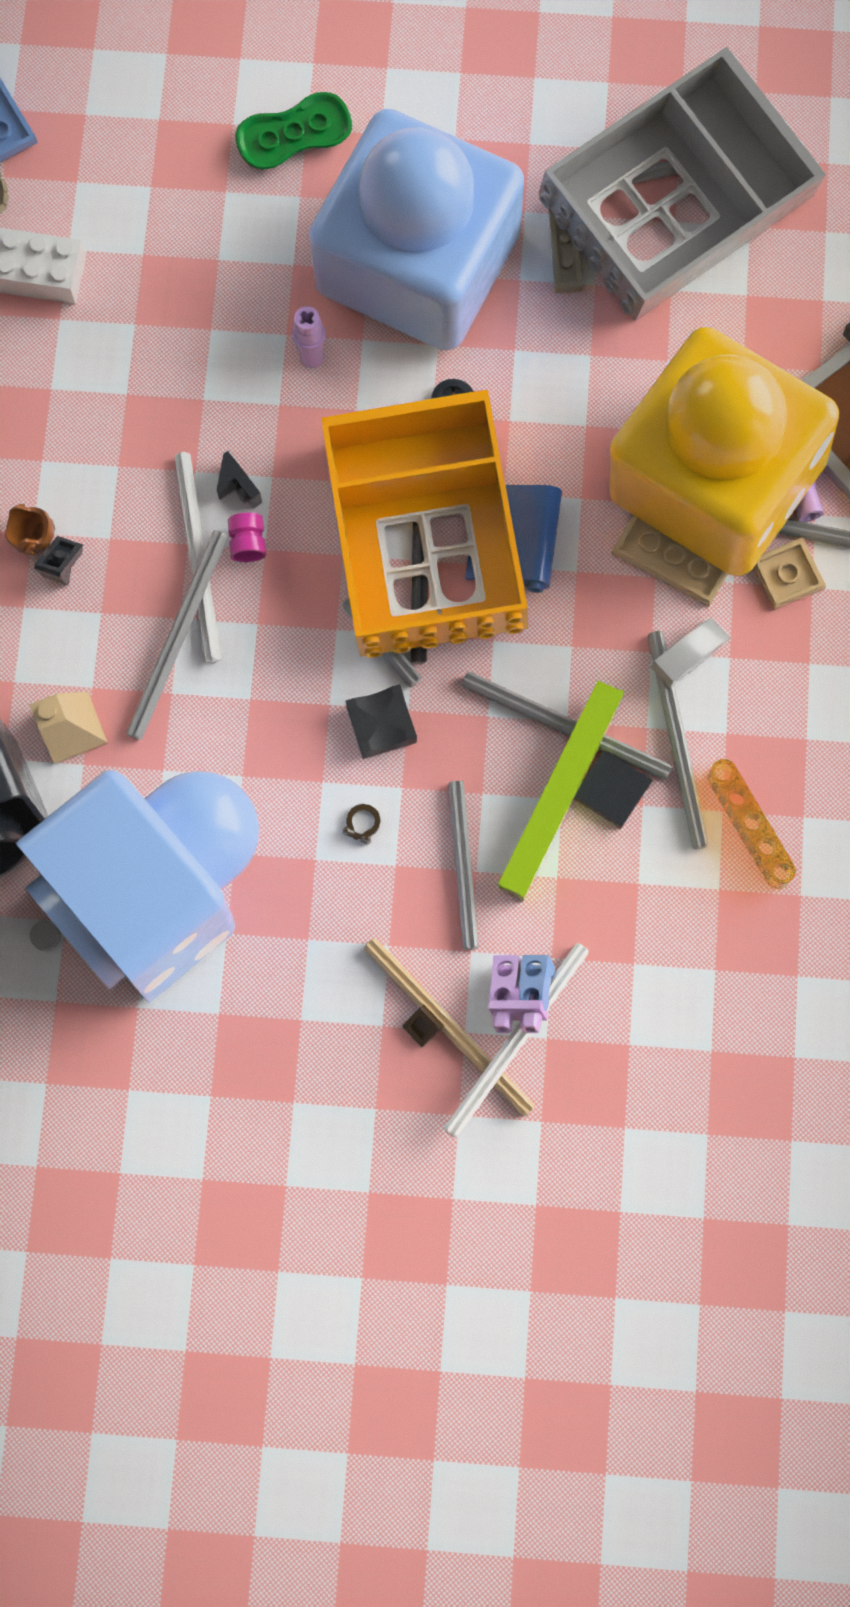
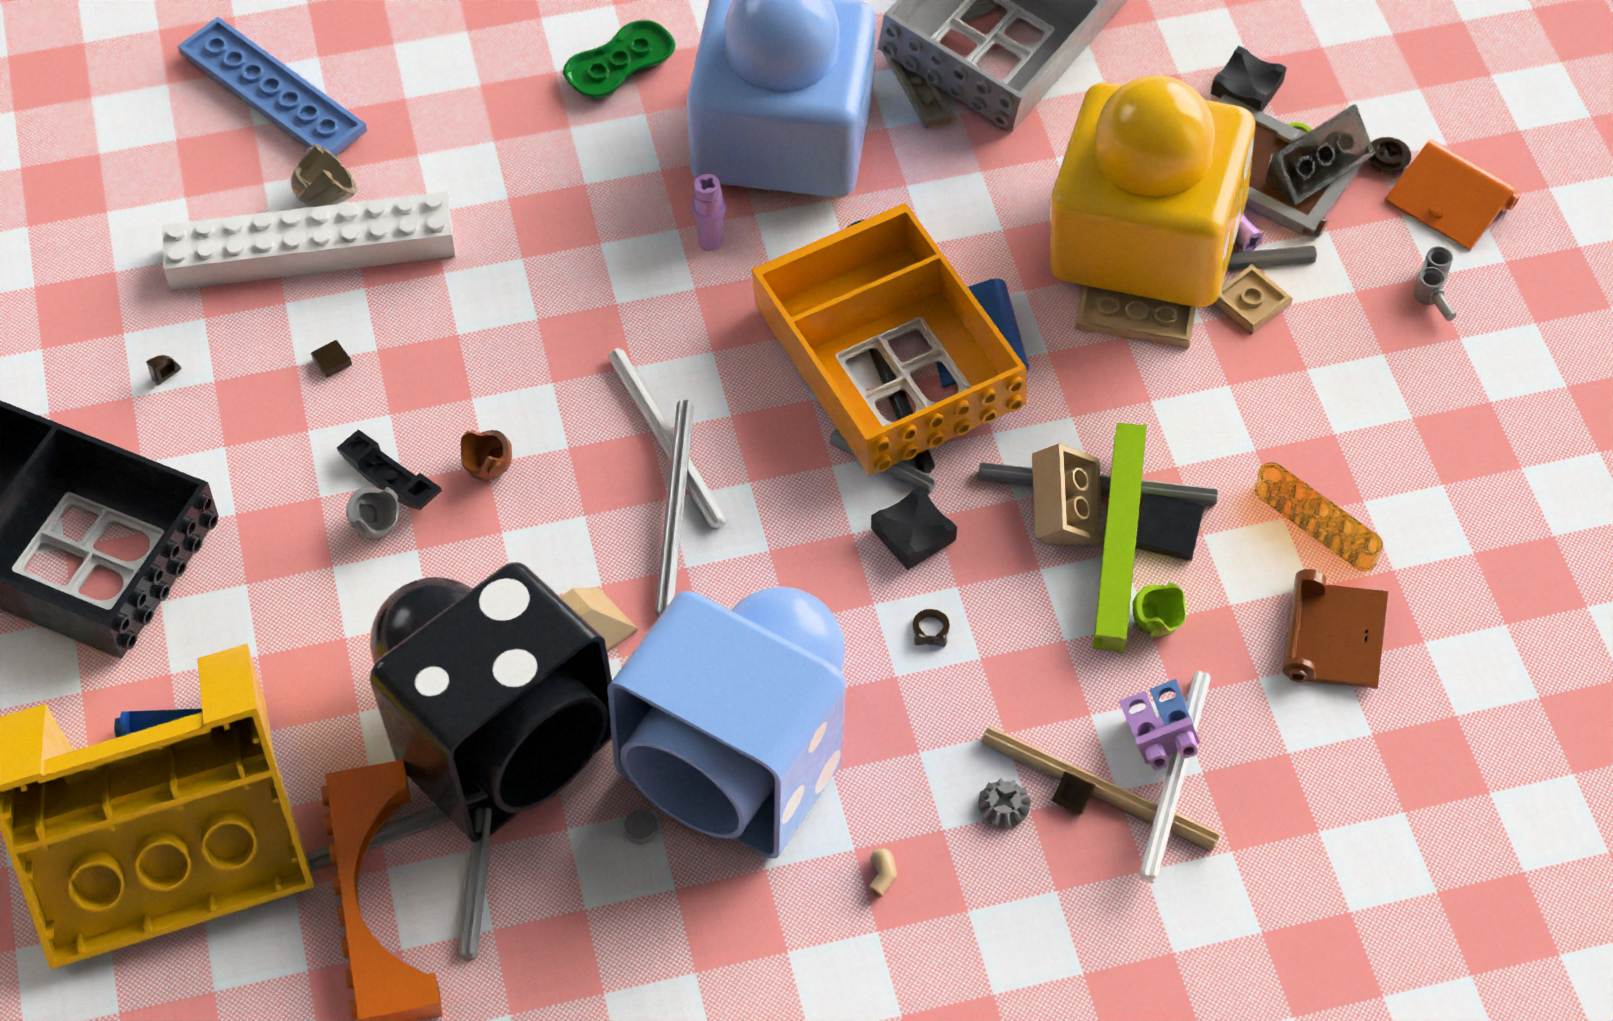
camera: 20 degrees left, 20 degrees down
(58, 560) = (526, 478): black slope -> none
(234, 478) = (680, 356): black slope -> none
(236, 1044) = (886, 868): none -> tan arm
(246, 537) = (711, 404): dark pink wheel -> none
(354, 1026) = (1002, 815): none -> light grey gear
(463, 865) = (1050, 637): light grey axle -> none
(529, 735) = (1067, 497): none -> tan slope
(566, 875) = (1159, 609): none -> lime cap
(680, 750) = (1213, 467): light grey axle -> none
(689, 652) = (1189, 387): light grey slope -> none
(712, 942) = (1329, 632): none -> dark orange door

